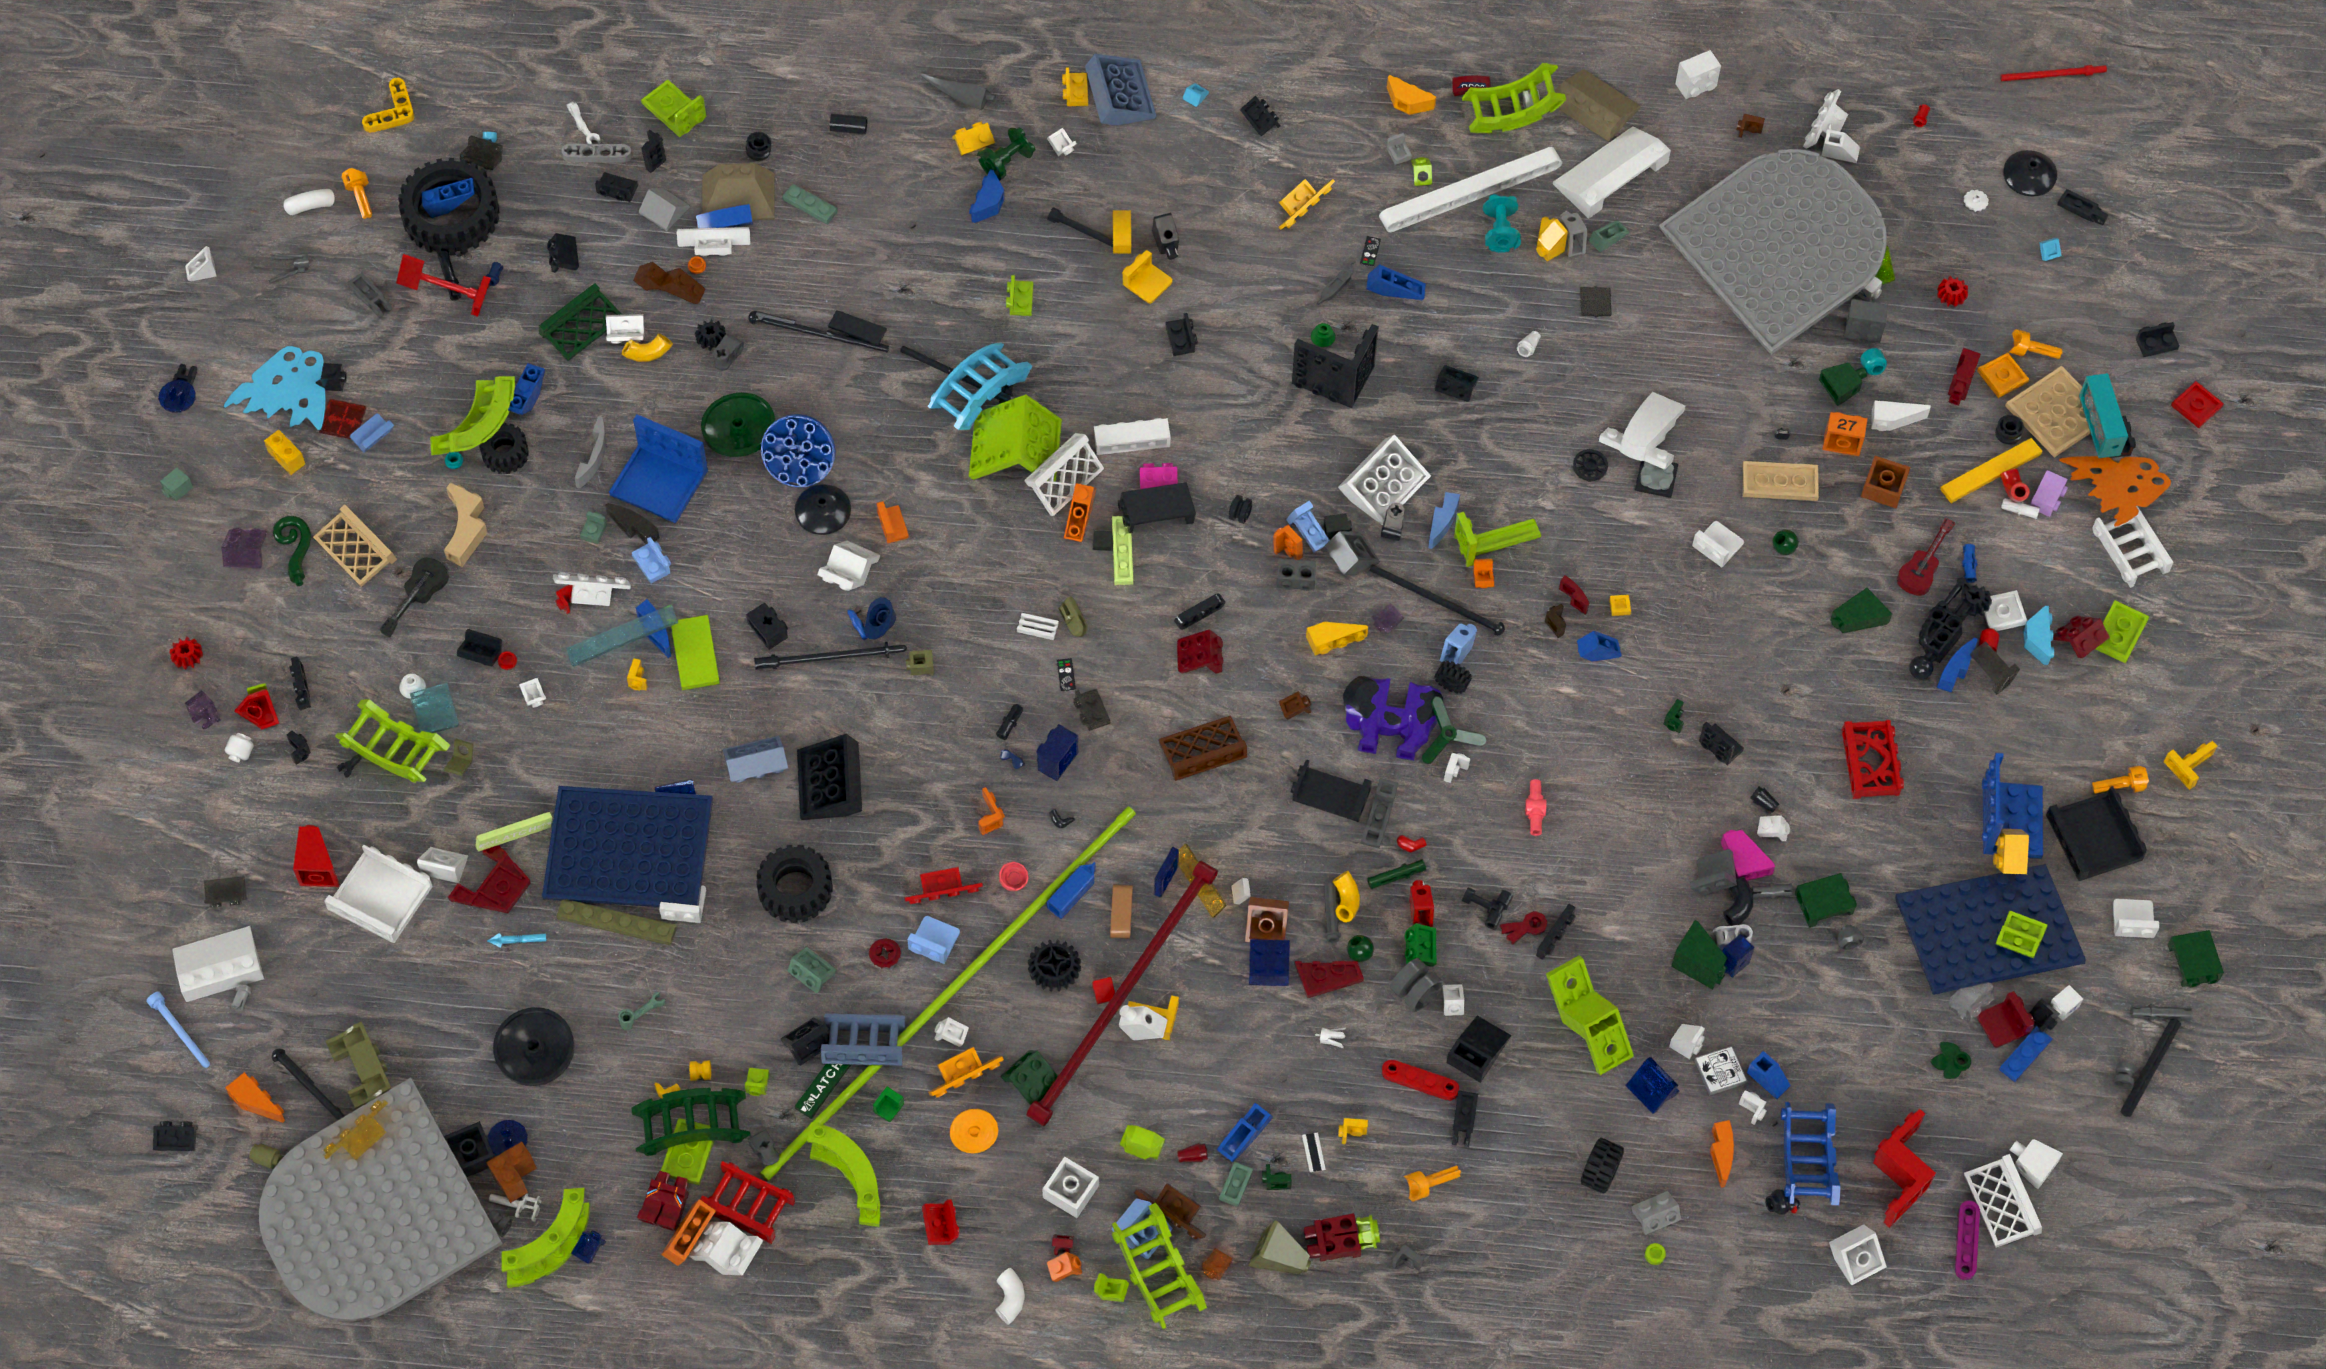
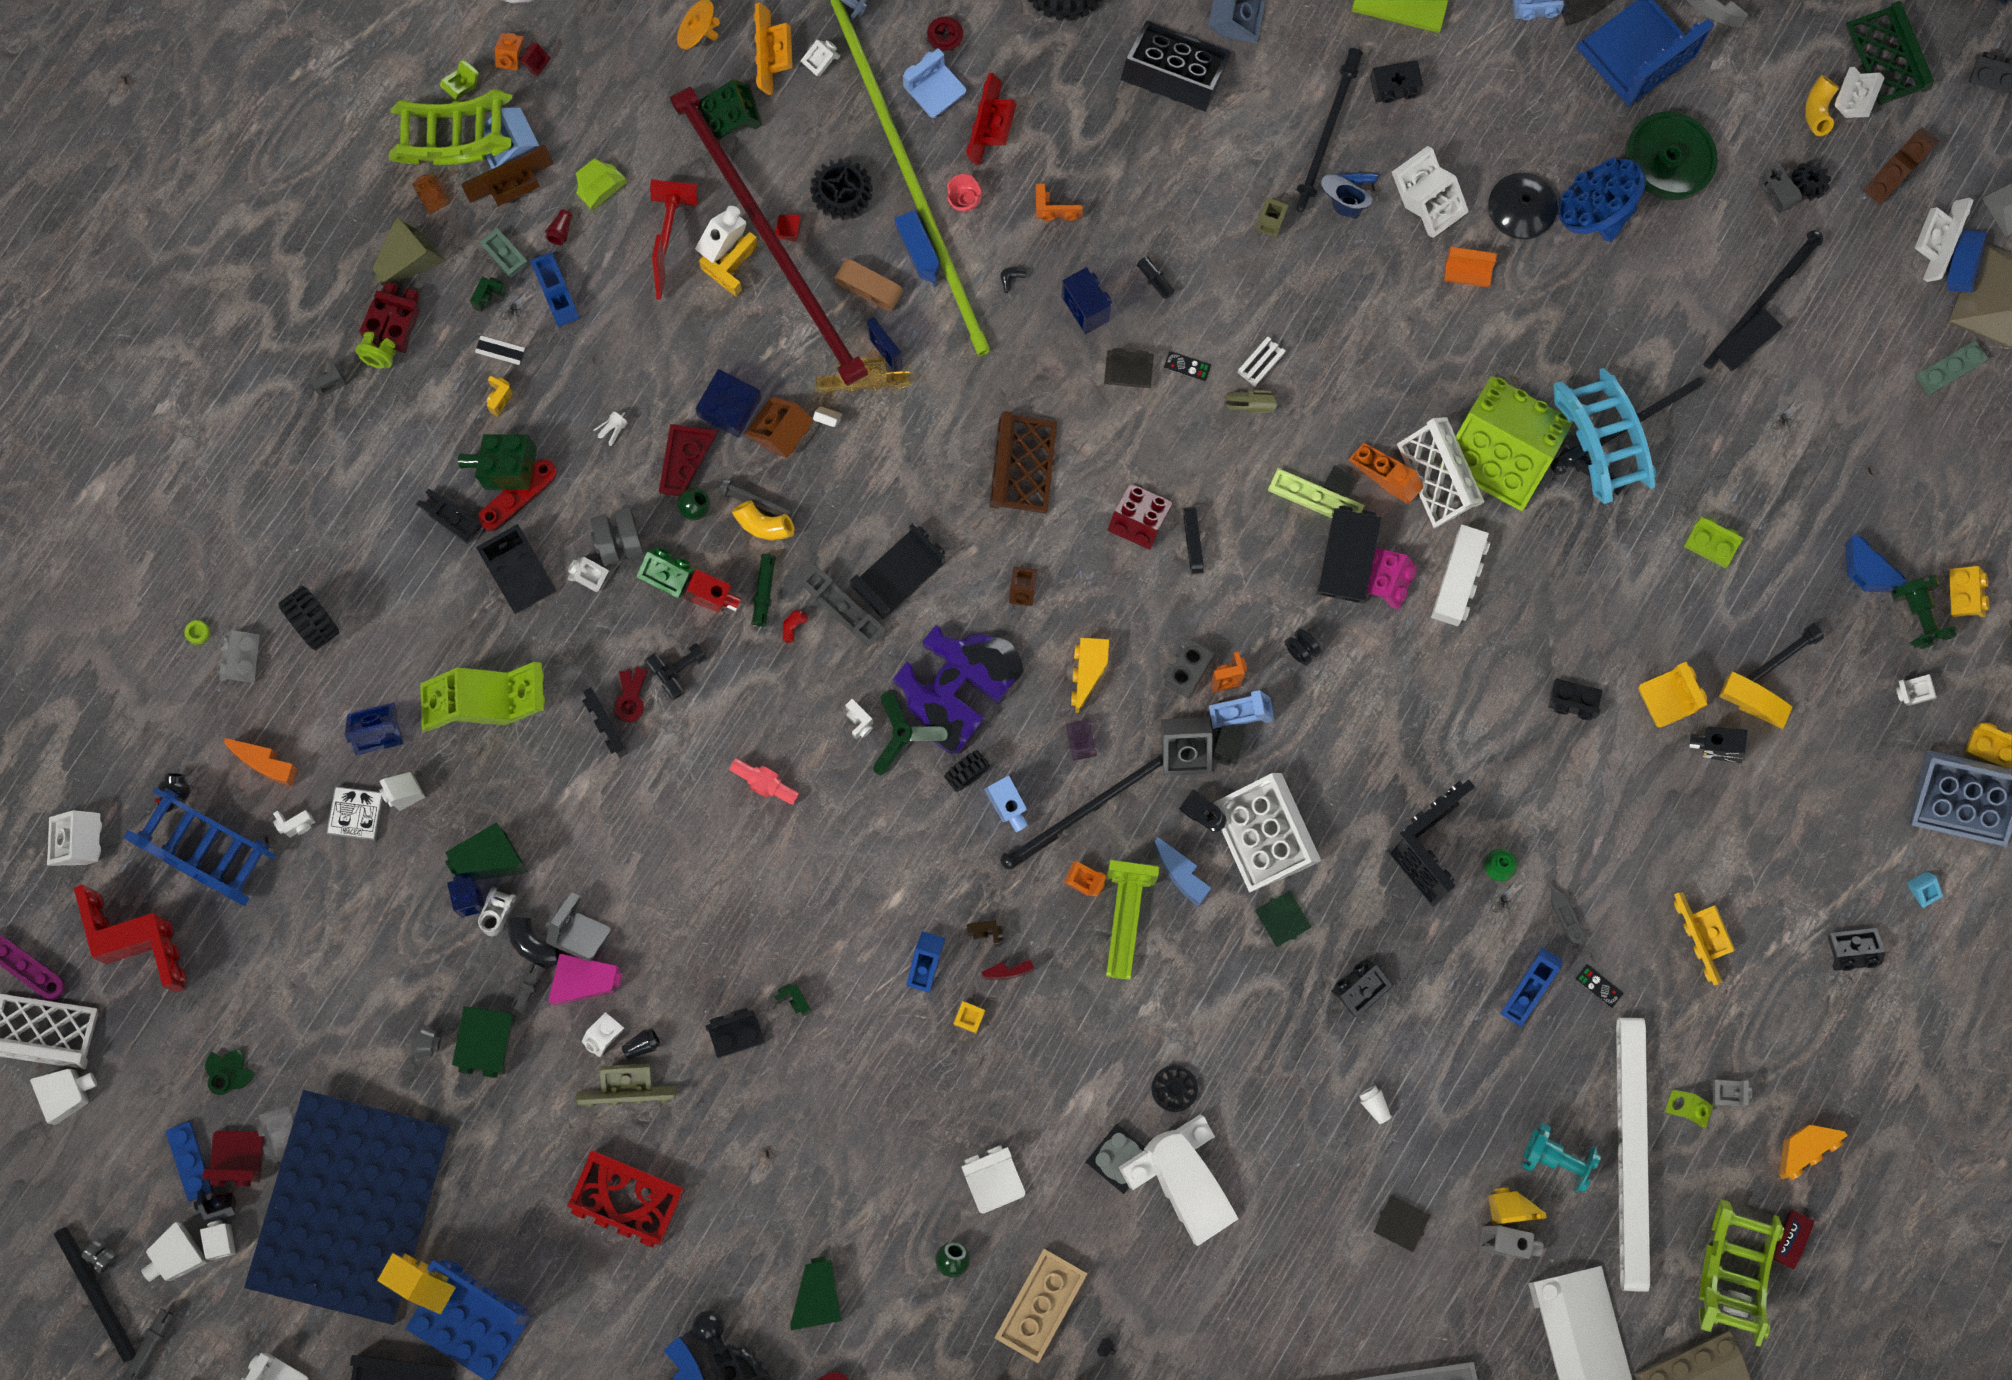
camera: 115 degrees right, 15 degrees up
(696, 265) = (1916, 208): orange plate -> none
(1016, 761) = (1103, 263): dark blue piece -> none
(1070, 1187) = (584, 88): white brick -> none
(1192, 1050) = (672, 195): none -> red piece
(1405, 1094) = (503, 461): none -> dark green brick
(1420, 1184) = (398, 428): light orange piece -> none
(1436, 449) = (1283, 919): none -> clear green piece
(1608, 235) = (1490, 1293): sand green slope -> none
(1768, 1075) = (316, 856): blue slope -> none
(1799, 793) = (626, 1084): none -> olive bracket
(2021, 934) = (310, 1229): lime slope -> none
(2093, 1027) = (173, 1255): none -> white torso

